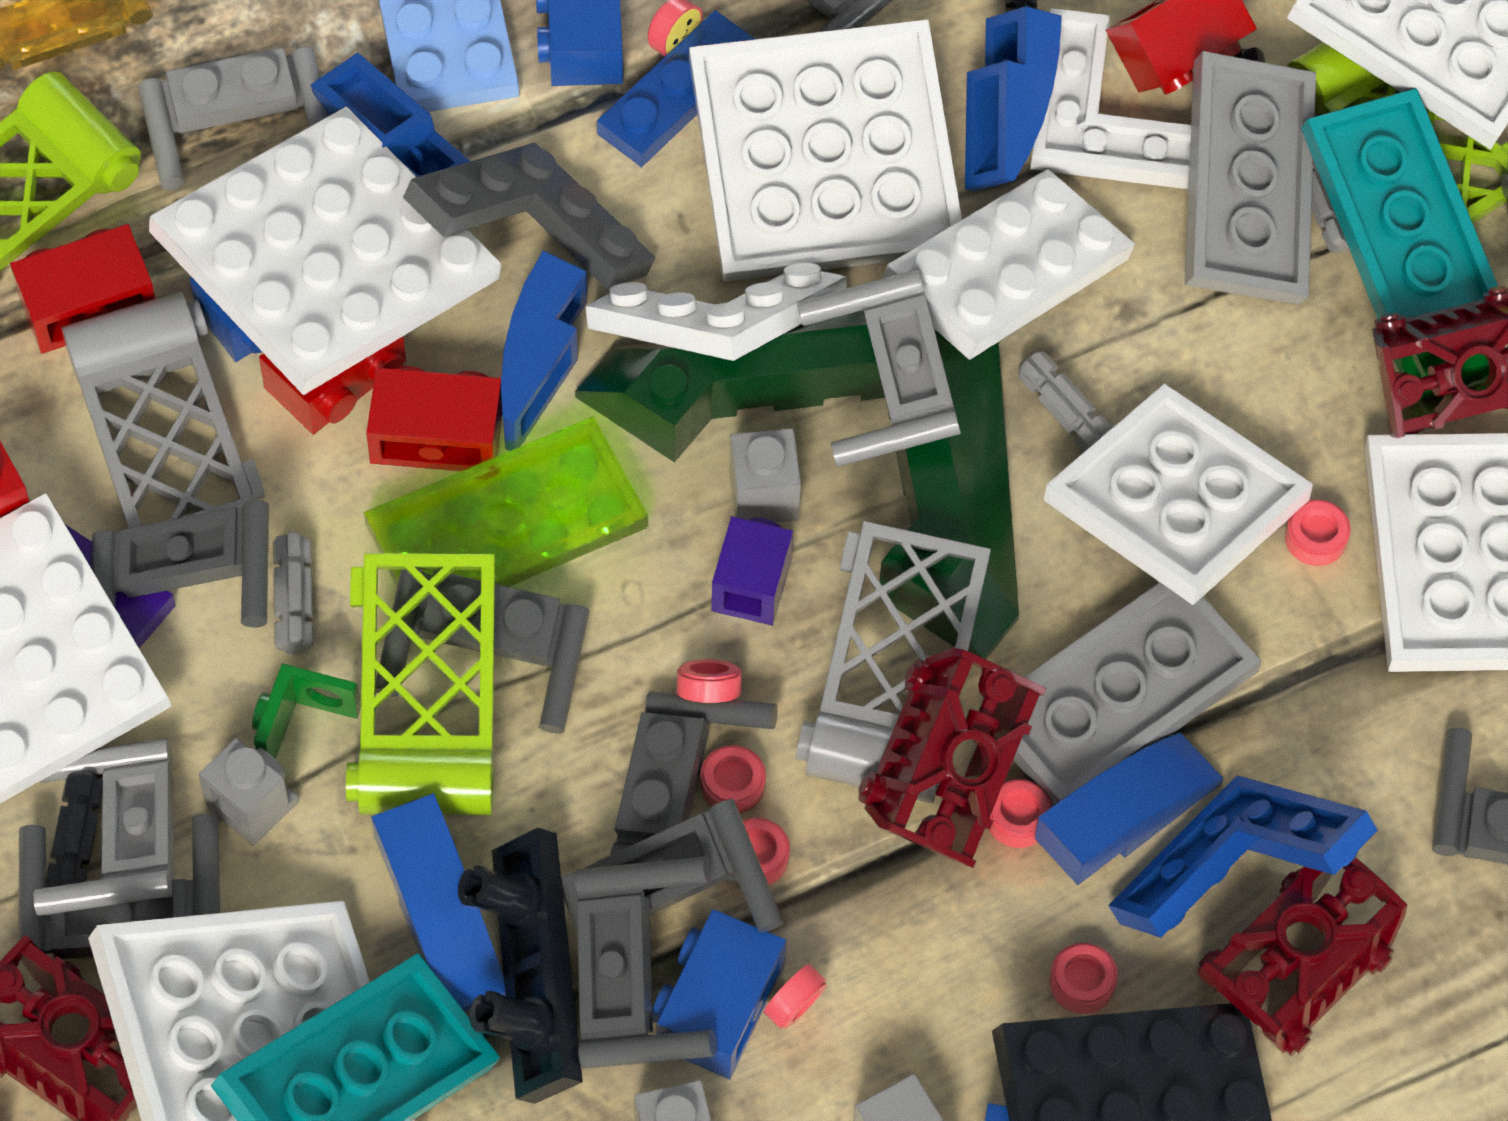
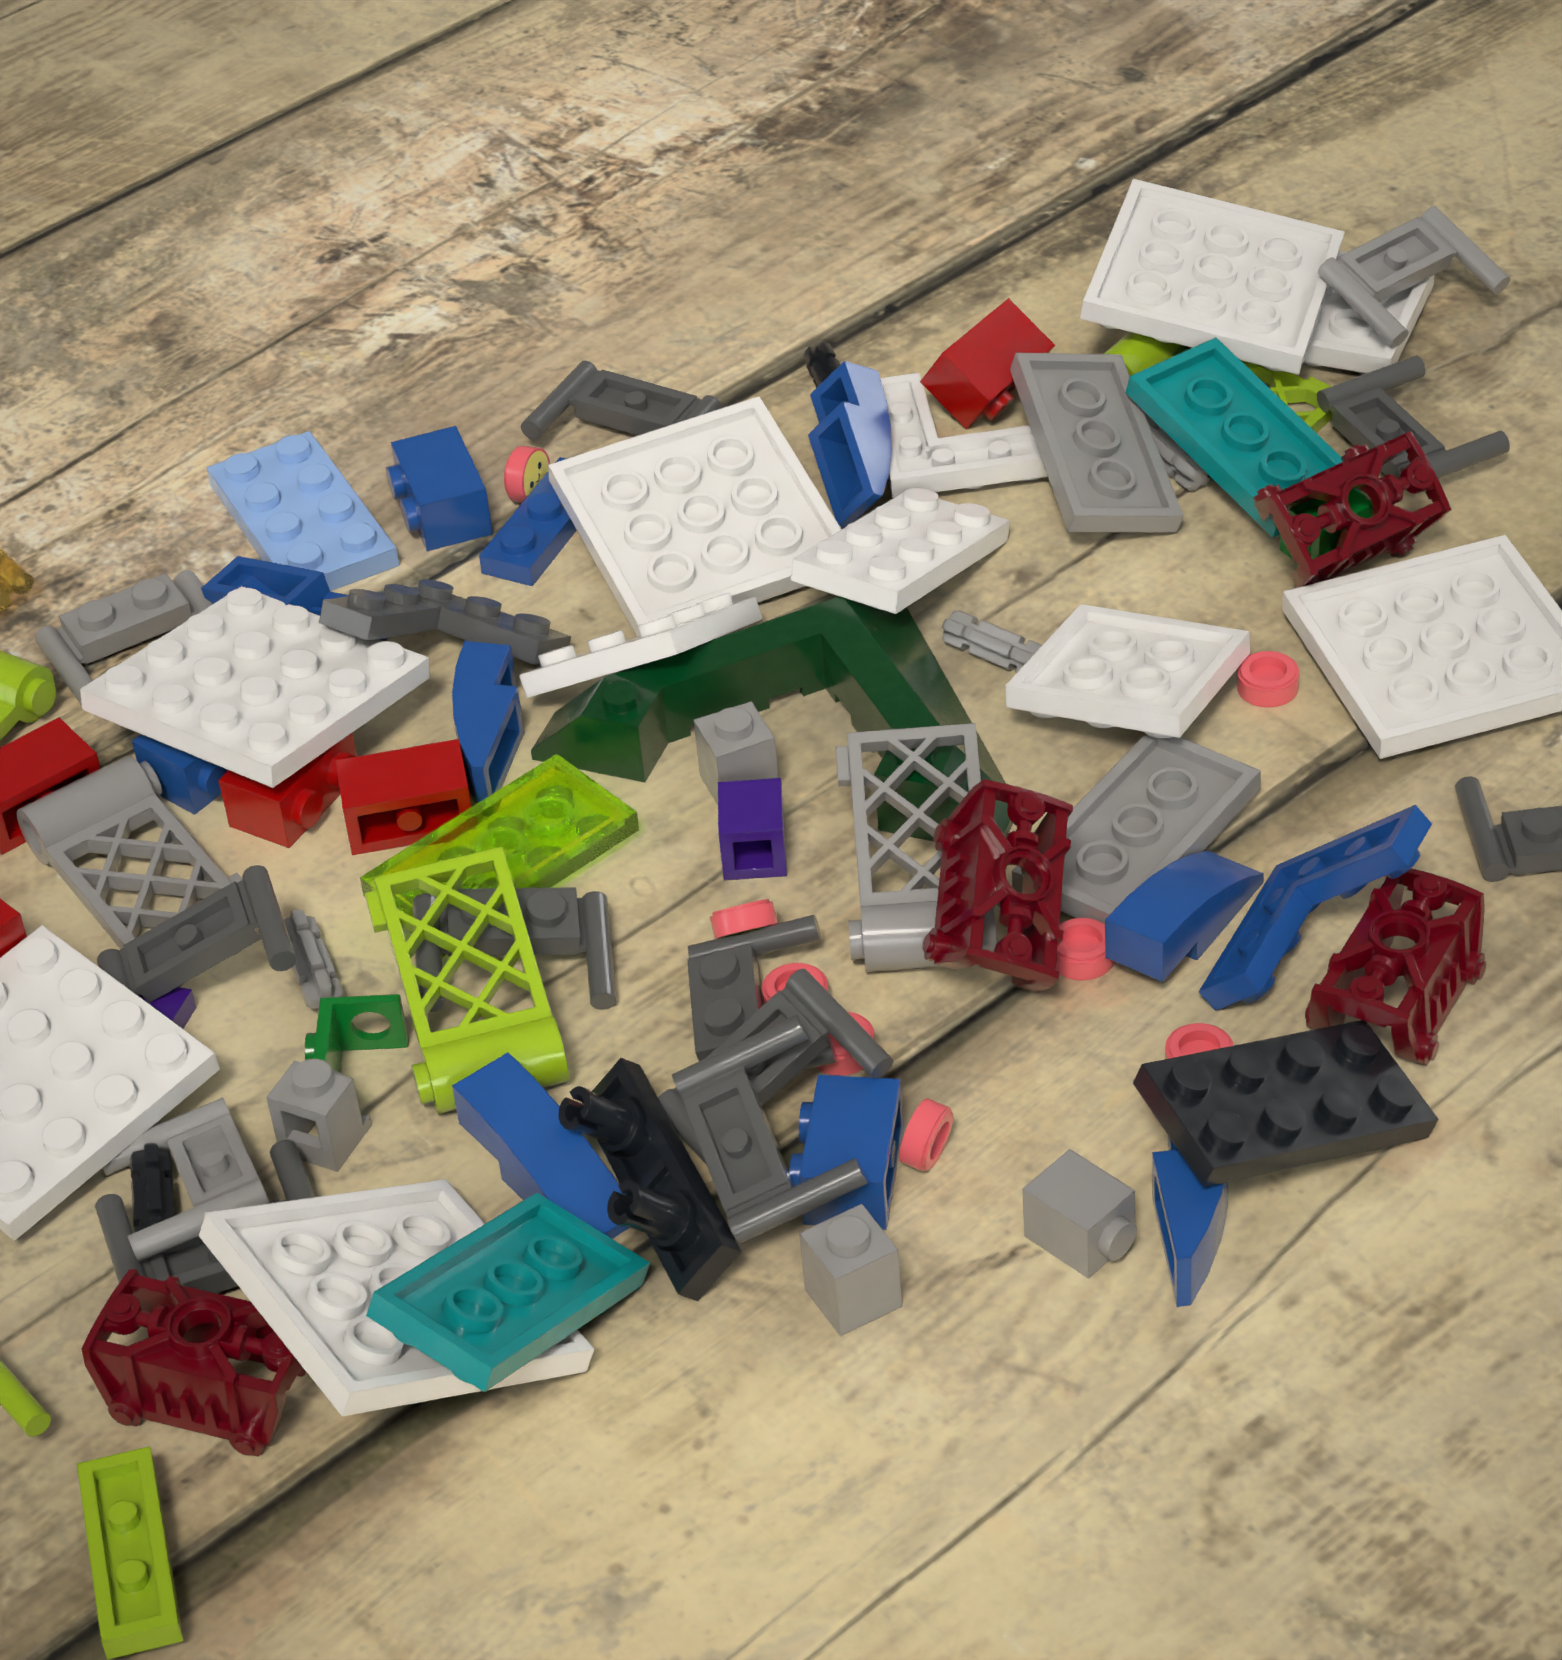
camera: 10 degrees left, 20 degrees down
(906, 362) = (835, 614): light grey plate -> none

